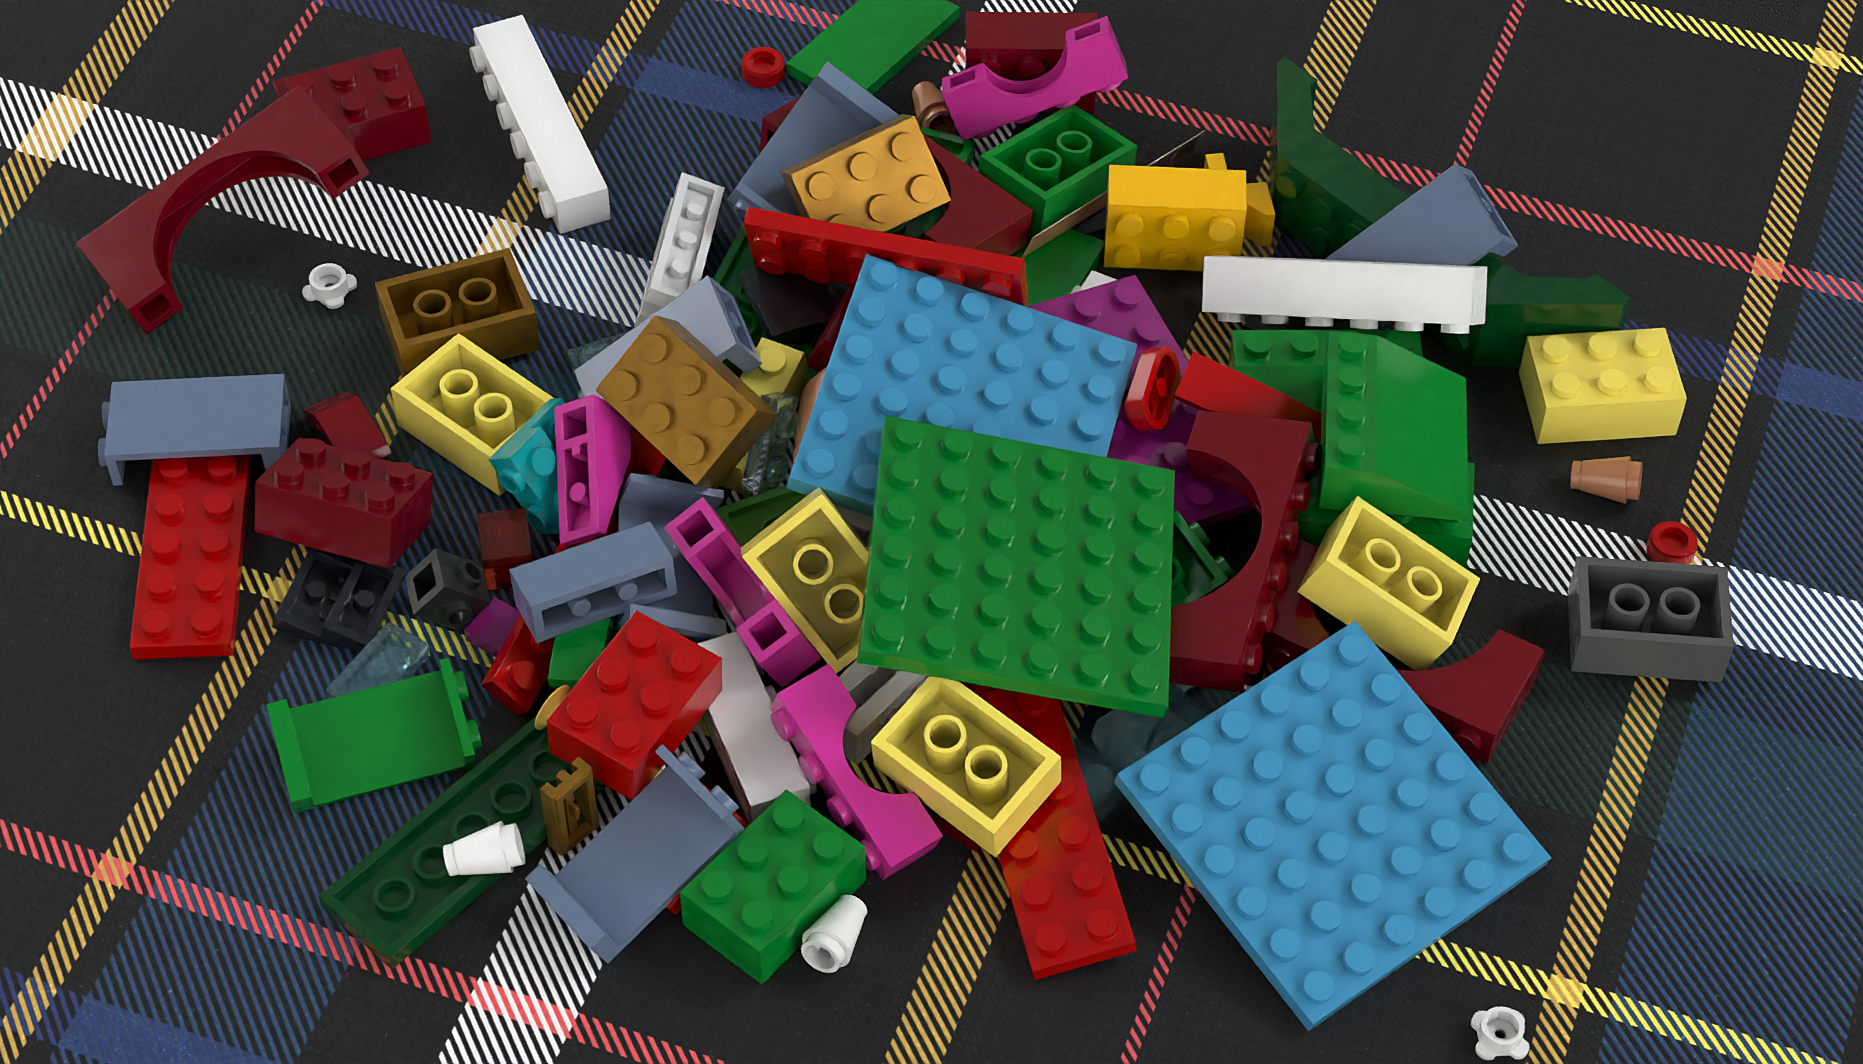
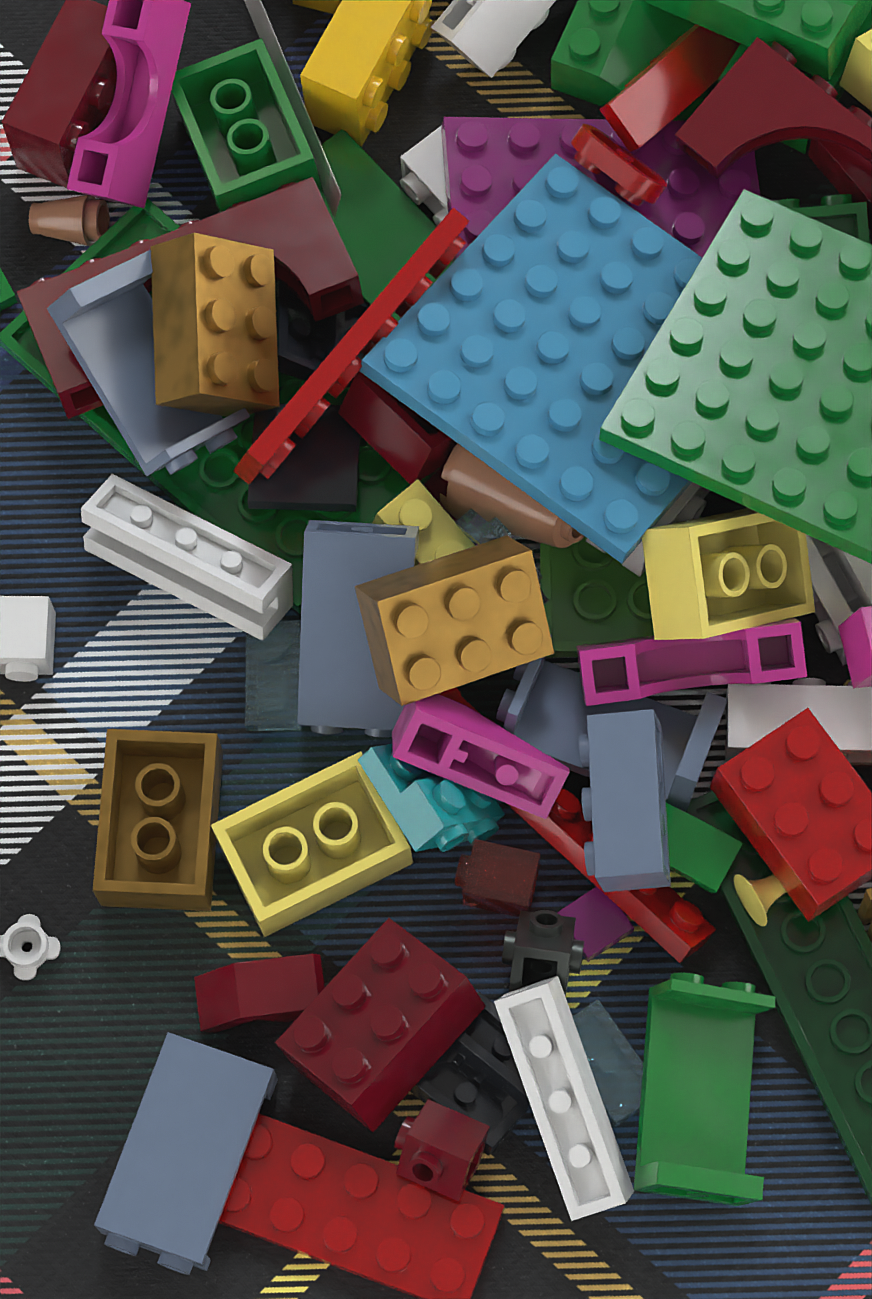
camera: 60 degrees left, 20 degrees up
(256, 580) = (441, 1149): none -> dark red brick
(326, 629) = (564, 1098): none -> white brick

